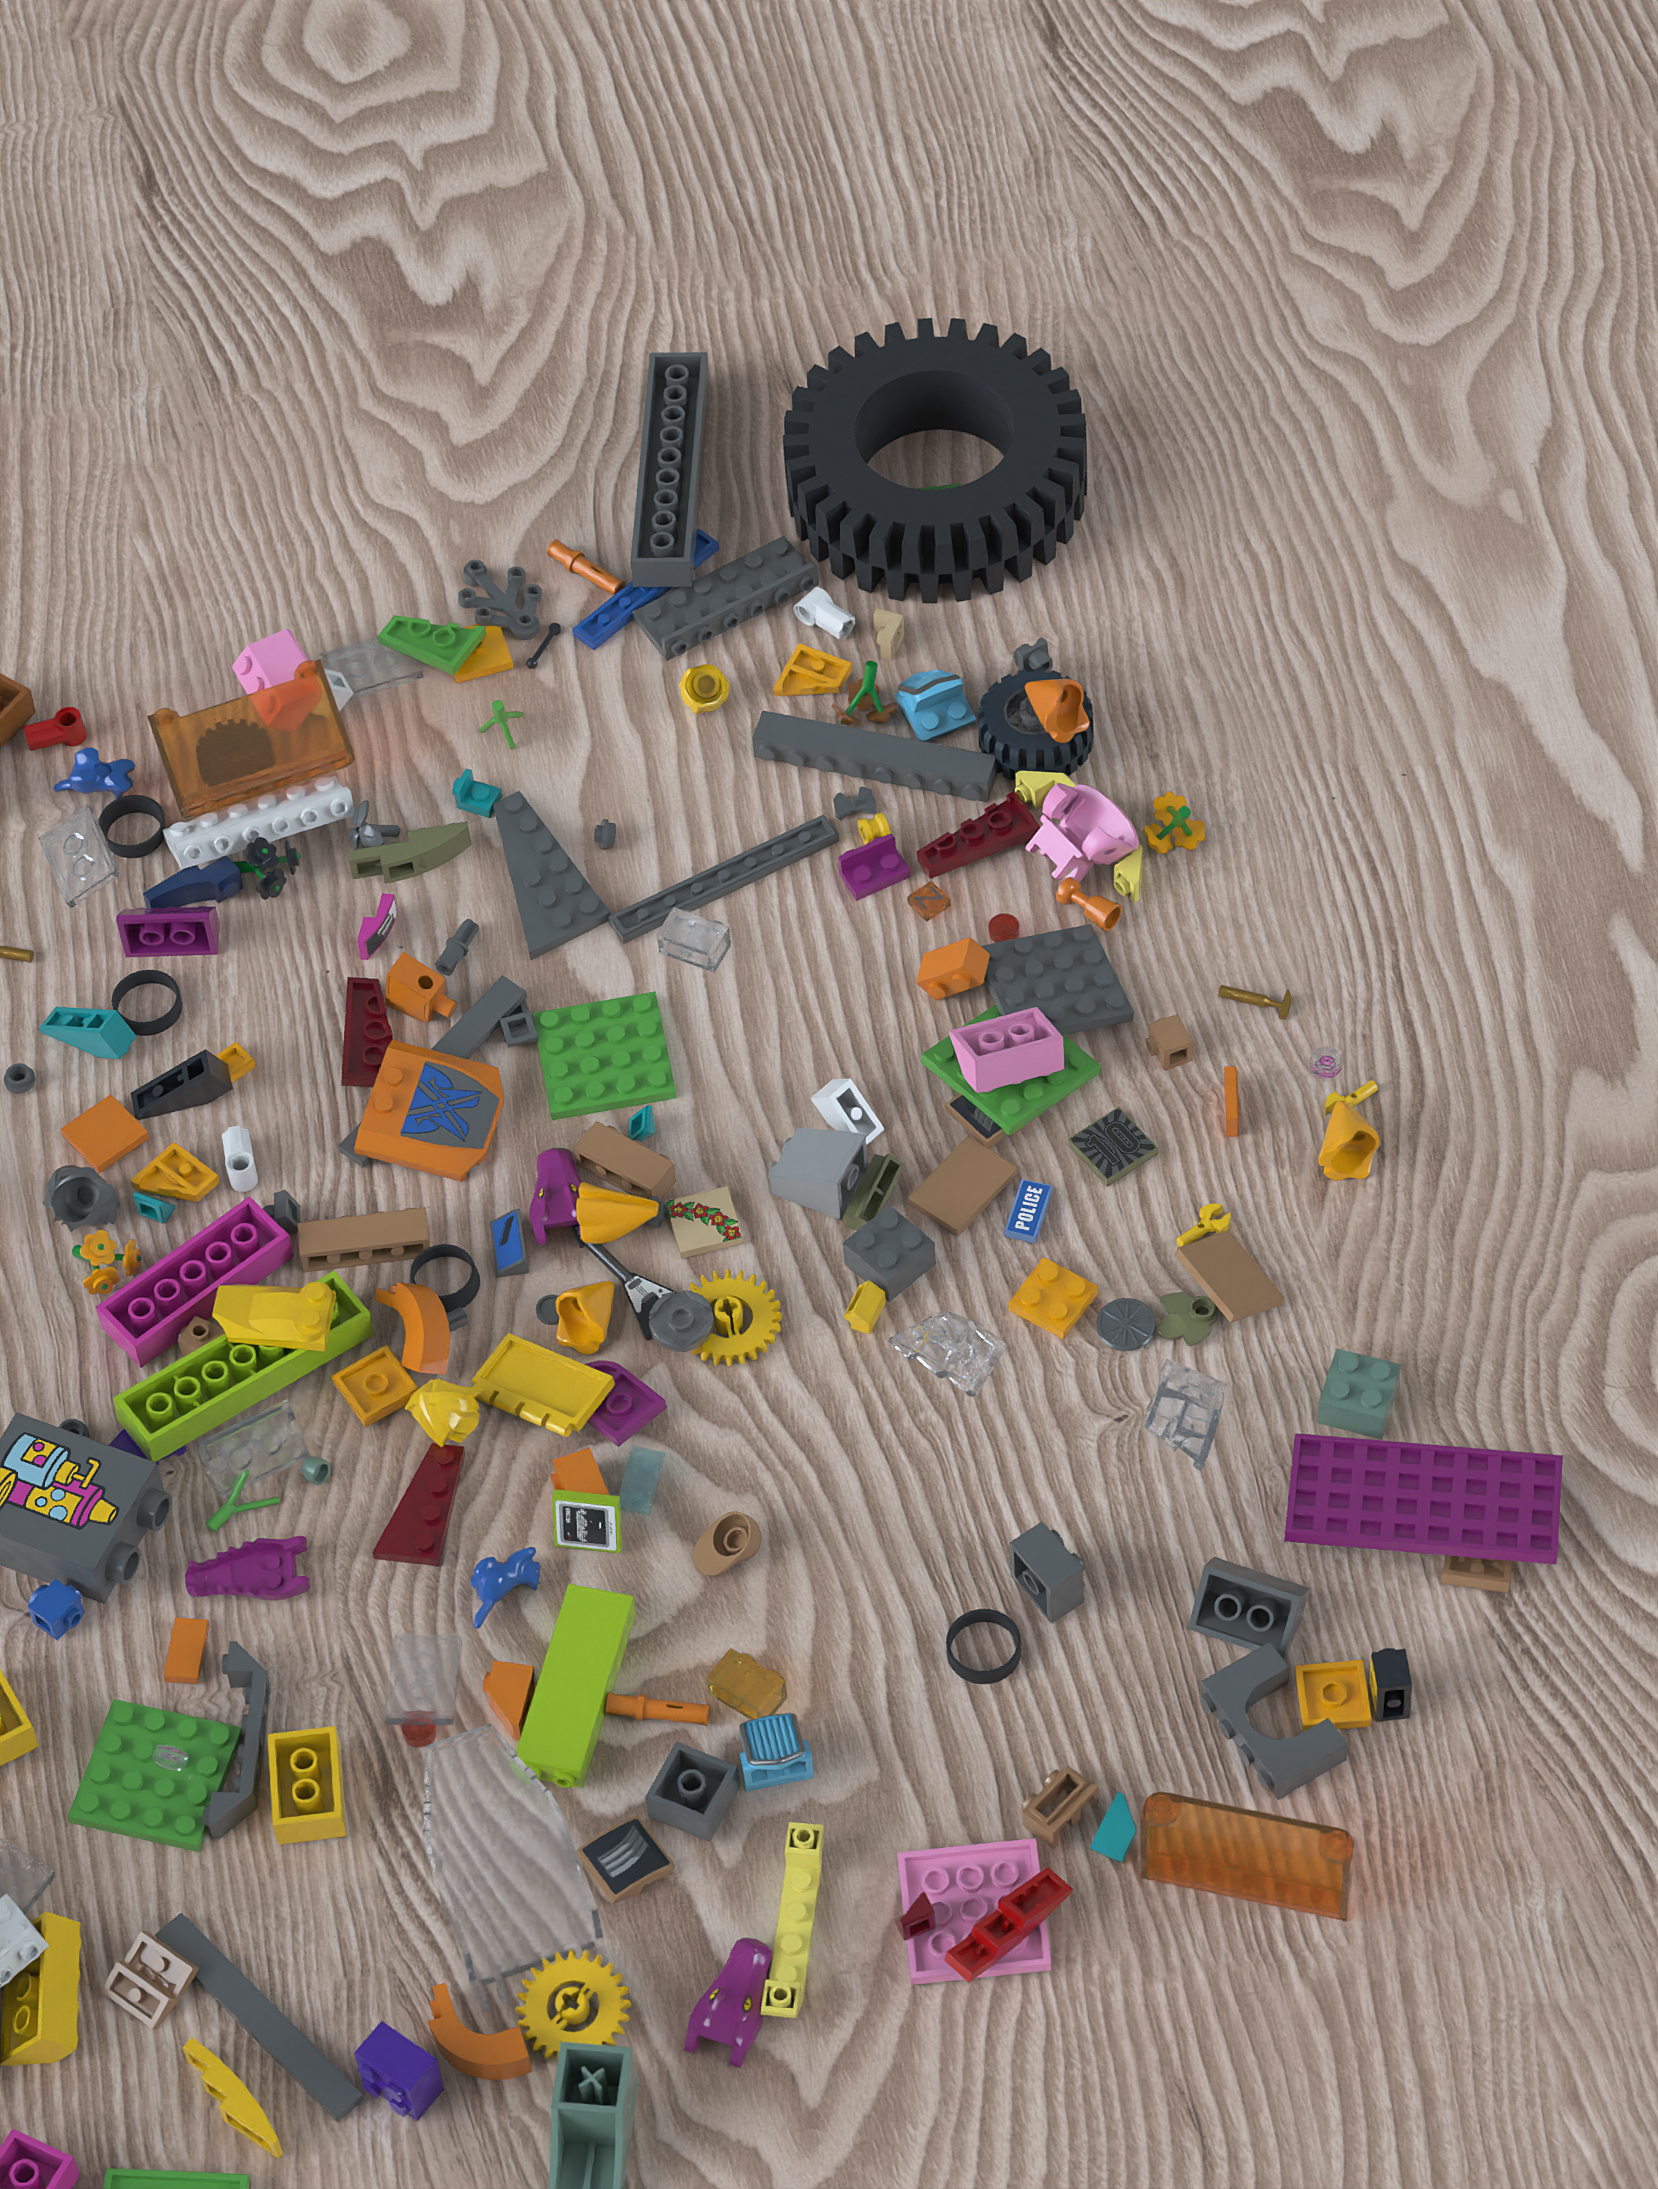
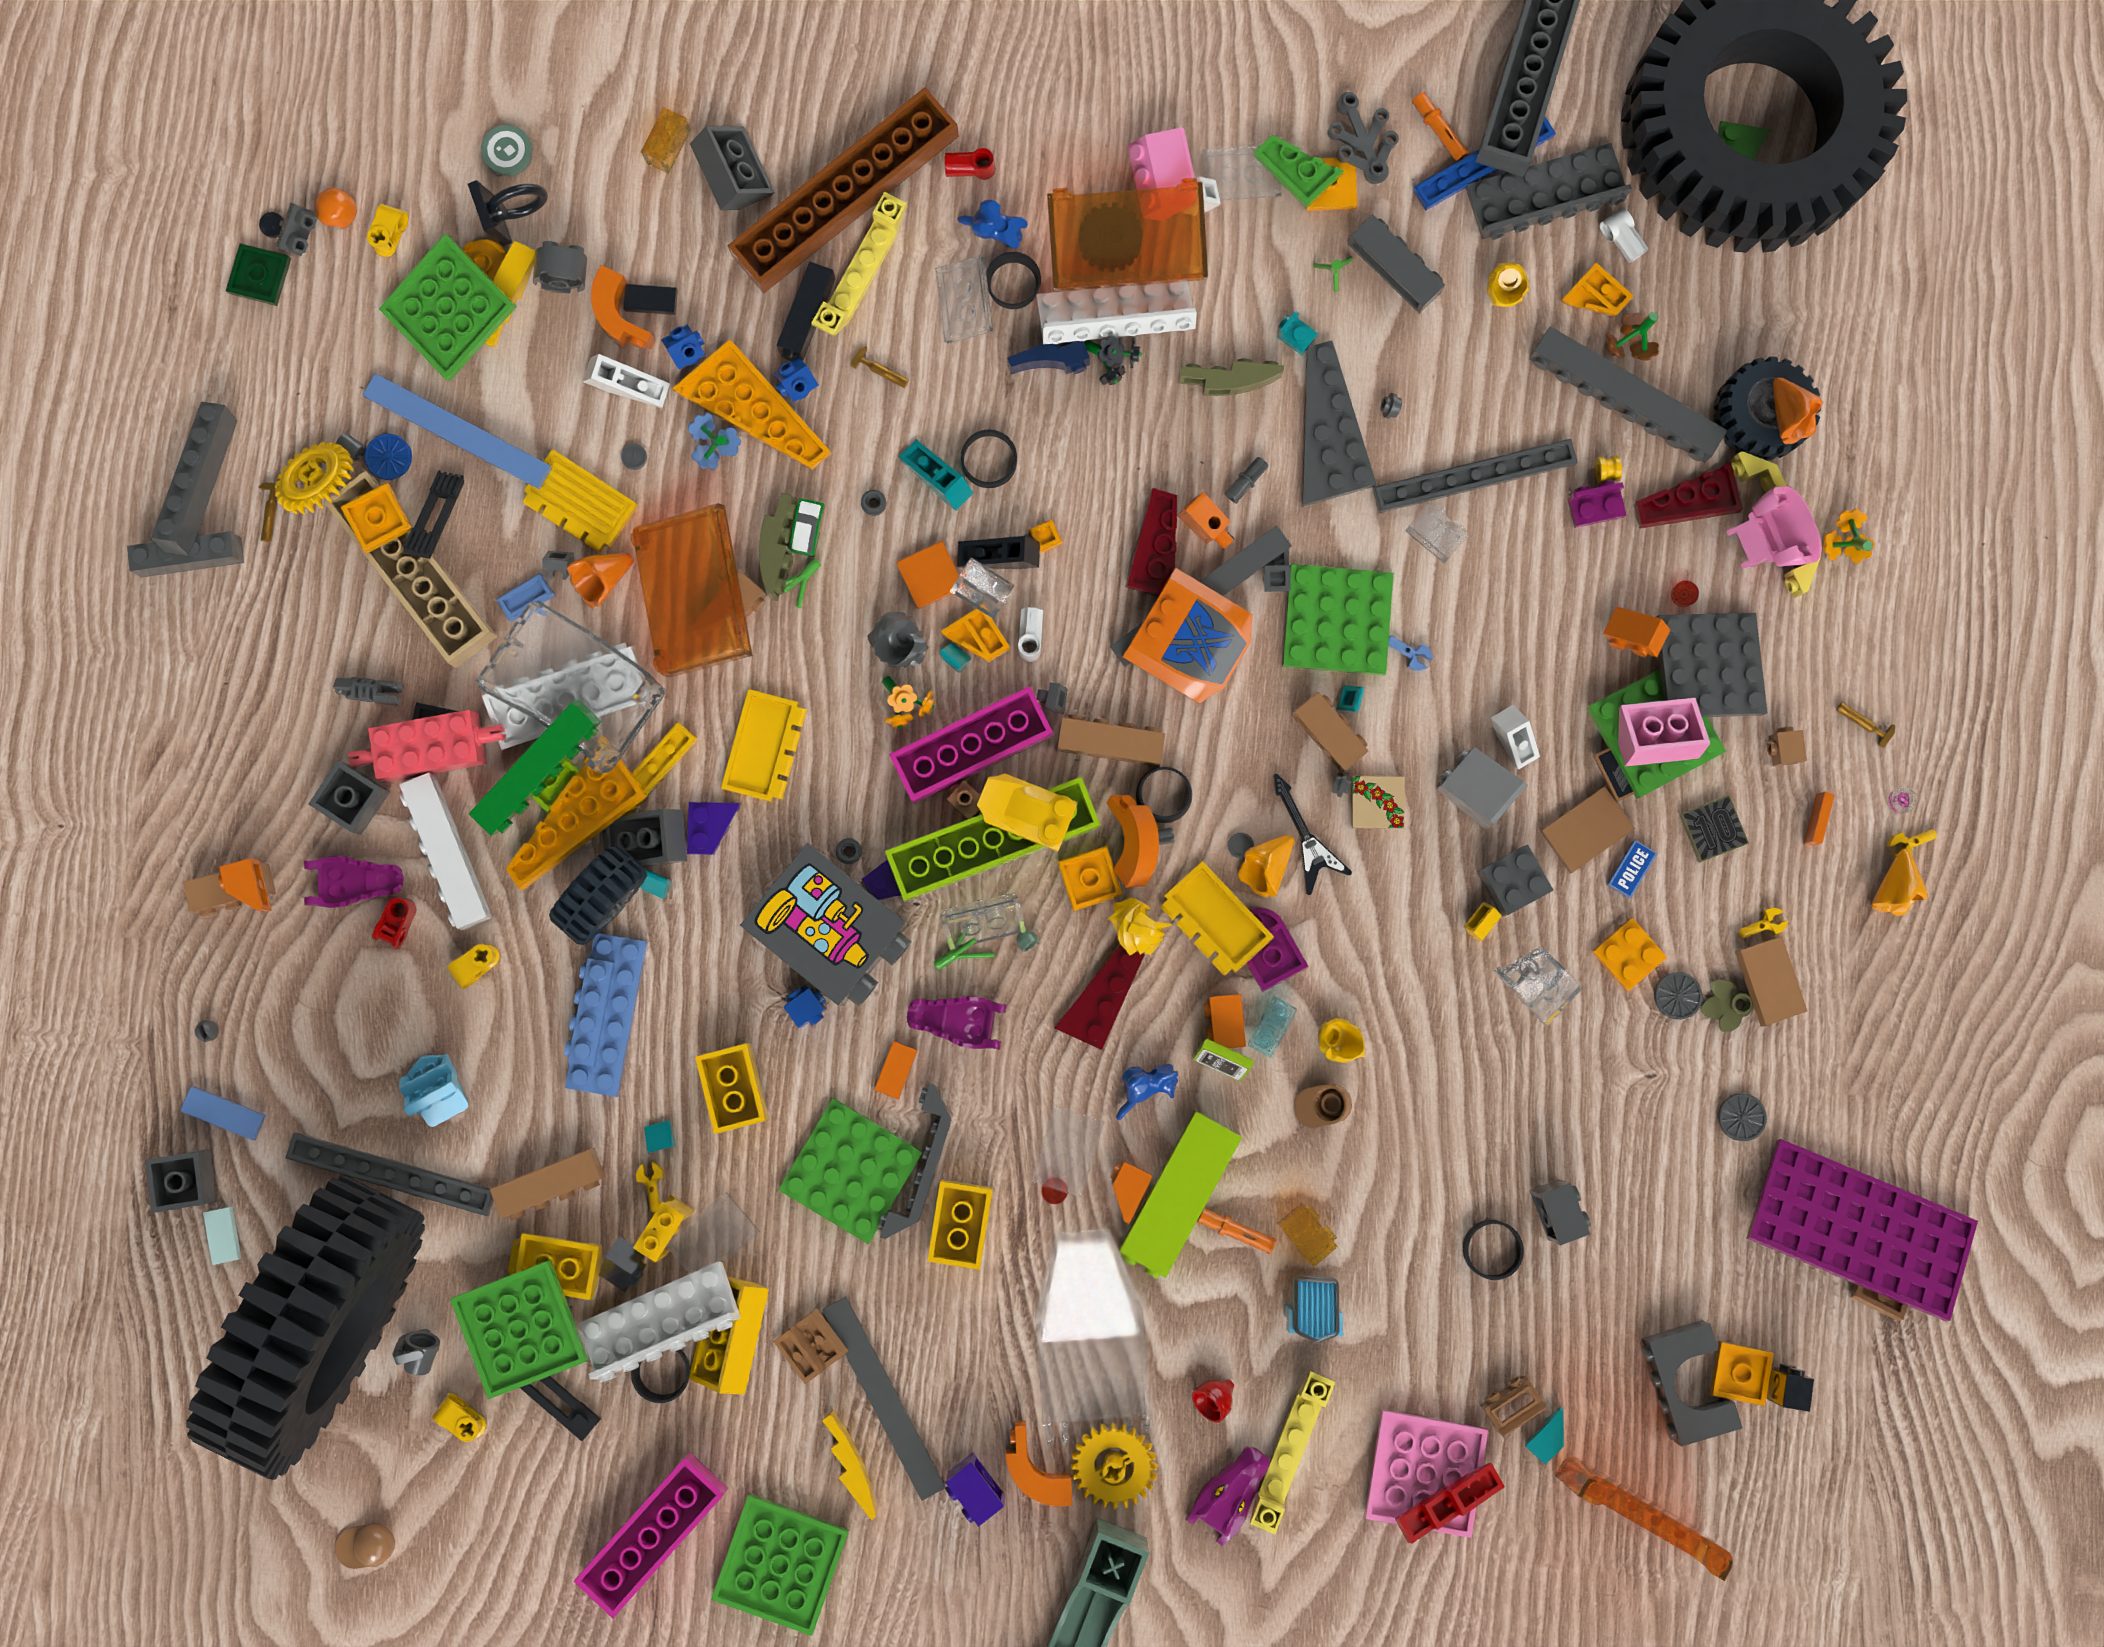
camera: 10 degrees right, 30 degrees up
(169, 931) = (1021, 396): magenta slope -> none
(169, 1121) = (982, 588): none -> clear brick
(170, 1757) = (863, 1174): clear tile -> none
(369, 834) = (1199, 349): dark grey plant -> none
(376, 930) = (1185, 446): dark pink slope -> none
(509, 1244) = (1222, 777): slope -> none
(554, 629) = (1398, 180): black hinge -> none
(554, 1193) = (1271, 747): magenta animal -> none
(572, 702) = (1396, 263): none -> dark grey brick
(610, 1214) = (1309, 784): light orange hat -> none
(625, 1859) = (1181, 1351): slope -> none
(677, 1896) = (1214, 1399): none -> red helmet
(681, 1321) = (1339, 899): flat silver tile -> none
(692, 1791) = (1245, 1317): dark grey brick -> none
(703, 1066) = (1411, 653): none -> medium blue bar
(727, 1469) = (1341, 1041): none -> yellow hair
(733, 1293) = (1375, 925): yellow gear -> none
(865, 803) = (1590, 434): dark grey piece -> none
(873, 1190) = (1516, 818): olive piece -> none
(890, 631) = (1676, 266): tan bracket -> none
(918, 1918) = (1382, 1477): dark red slope -> none
(928, 901) = (1632, 548): clear orange tile -> none
(934, 704) = (1689, 355): medium azure piece -> none
(1033, 656) = (1783, 344): dark grey hips -> none
(1097, 908) = (1766, 602): orange piece -> none
(1186, 1410) = (1704, 1095): clear slope -> none
(1245, 1429) = (1742, 1117): none -> dark grey wheel
(1247, 1606) = (1701, 1280): dark grey slope -> none
(1359, 1393) = (1840, 1119): sand green brick -> none

